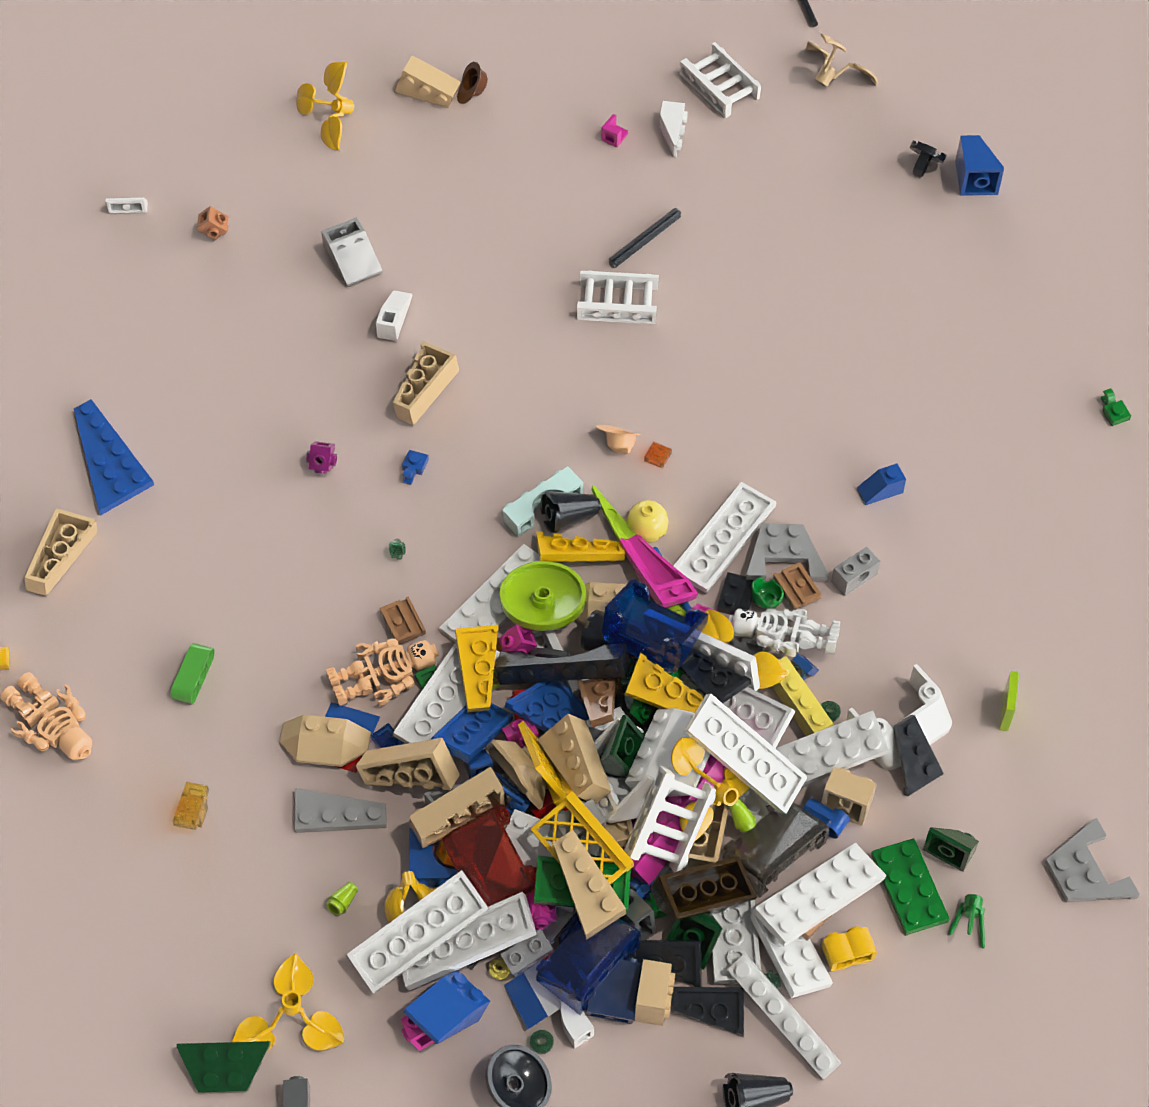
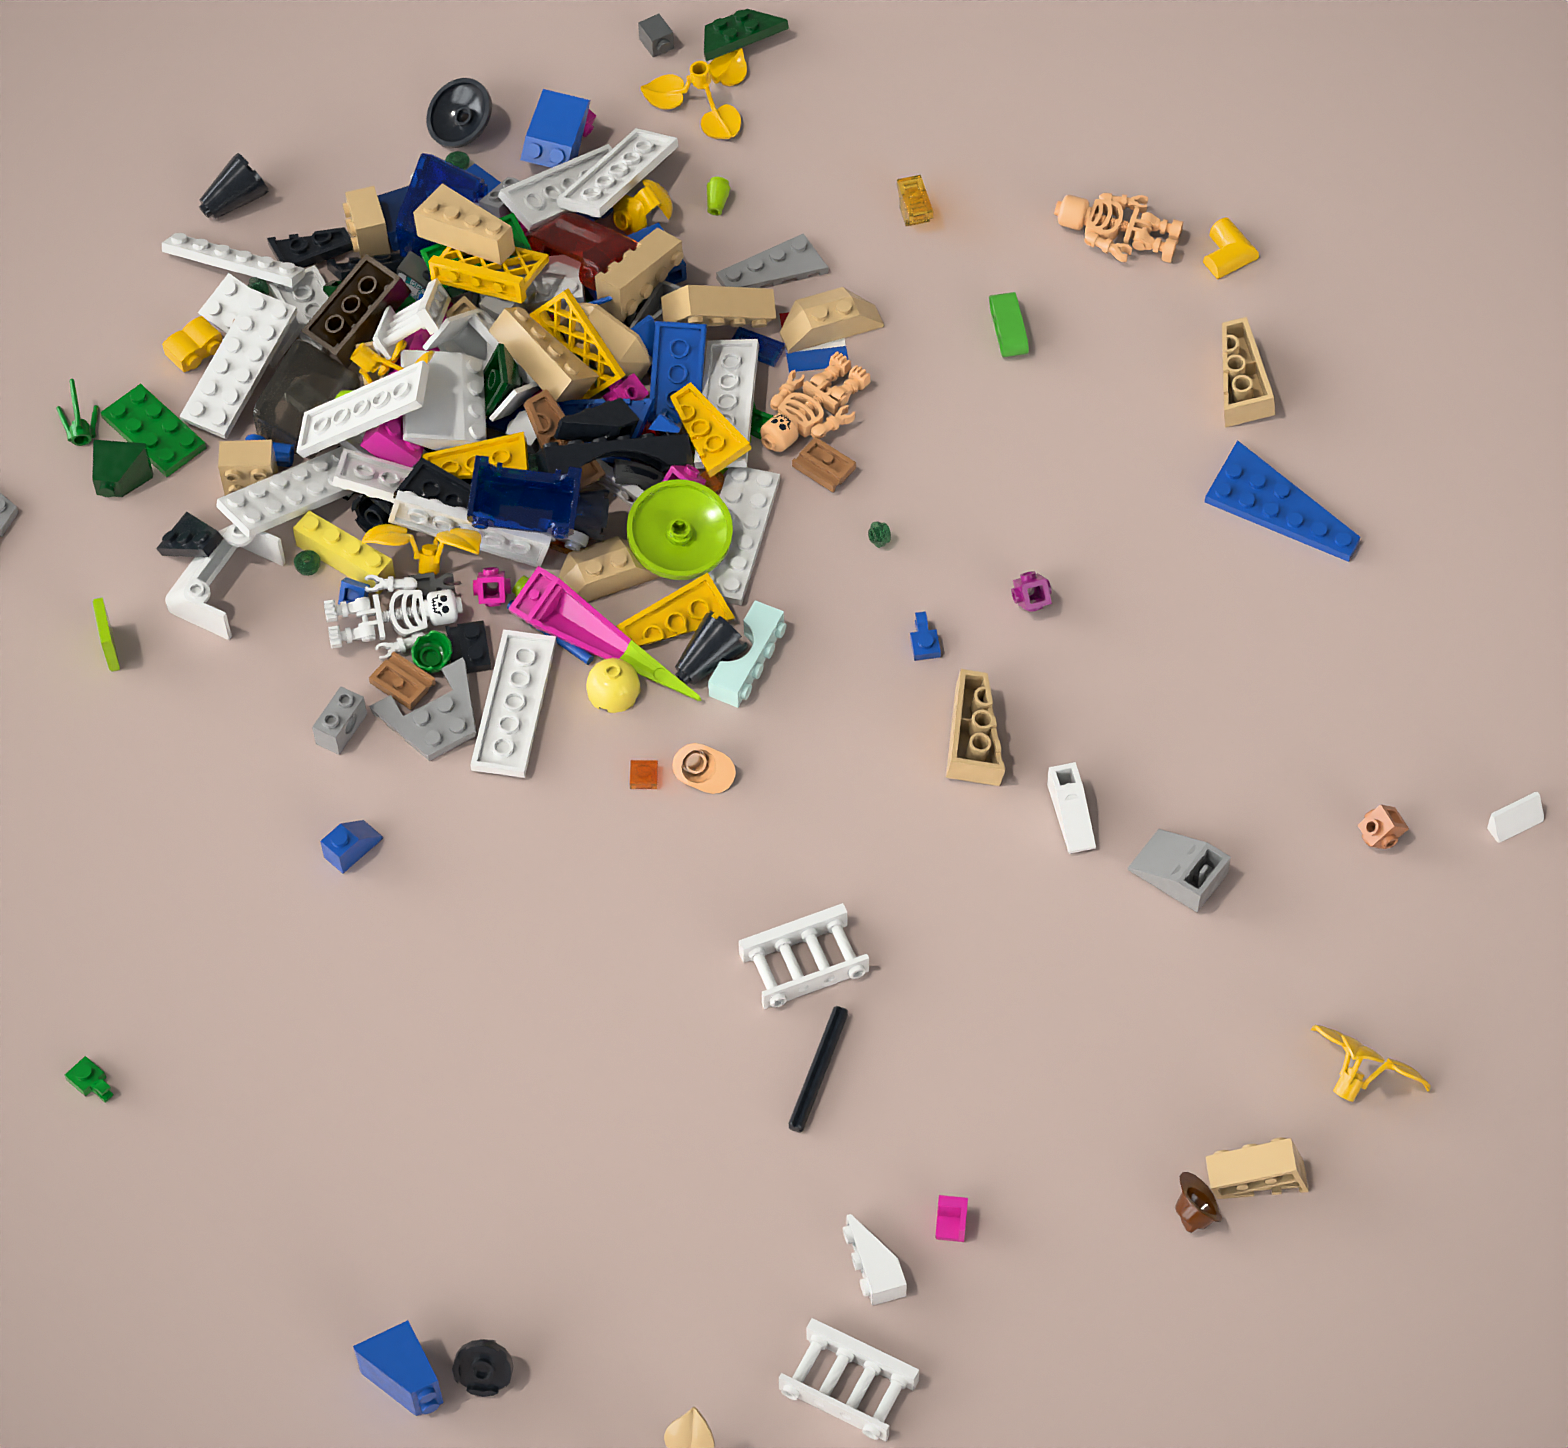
camera: 155 degrees right, 0 degrees up
(505, 686) = (666, 422): none -> blue slope
(558, 686) = (606, 420): none -> black slope

